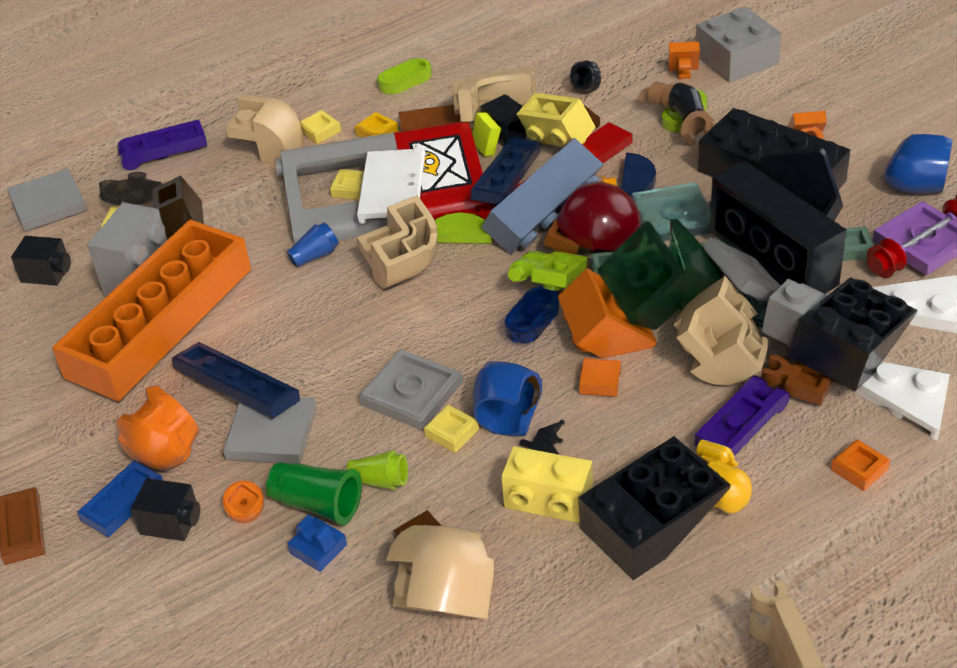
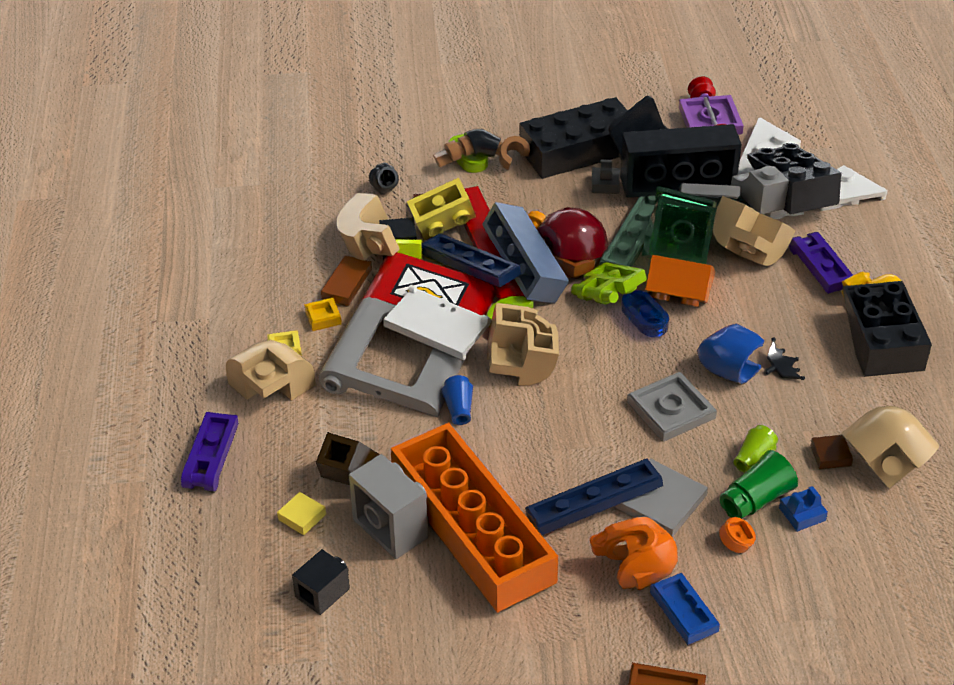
camera: 65 degrees left, 0 degrees up
(46, 199) = (211, 560): light grey tile -> none
(134, 190) = (267, 491): clear smoke dish -> none
(165, 509) = (721, 580): black brick -> none
(347, 184) = (387, 355): light yellow tile -> none
(404, 76) = (263, 273): lime tile -> none
(451, 428) = (730, 400): light yellow tile -> none
(545, 483) = (831, 367): light yellow brick -> none
(600, 377) = (732, 308): orange tile -> none
(638, 174) = (525, 199): dark blue tile -> none
(674, 202) = (592, 199): clear light blue tile -> none
(683, 57) = (413, 125): orange tile -> none
(738, 44) = (424, 93): light grey brick -> none
(798, 379) = (808, 222): dark orange plate -> none
(809, 122) = (554, 104): orange tile -> none
(860, 464) = (890, 235): orange tile -> none
(919, 164) = (646, 77): blue piece -> none

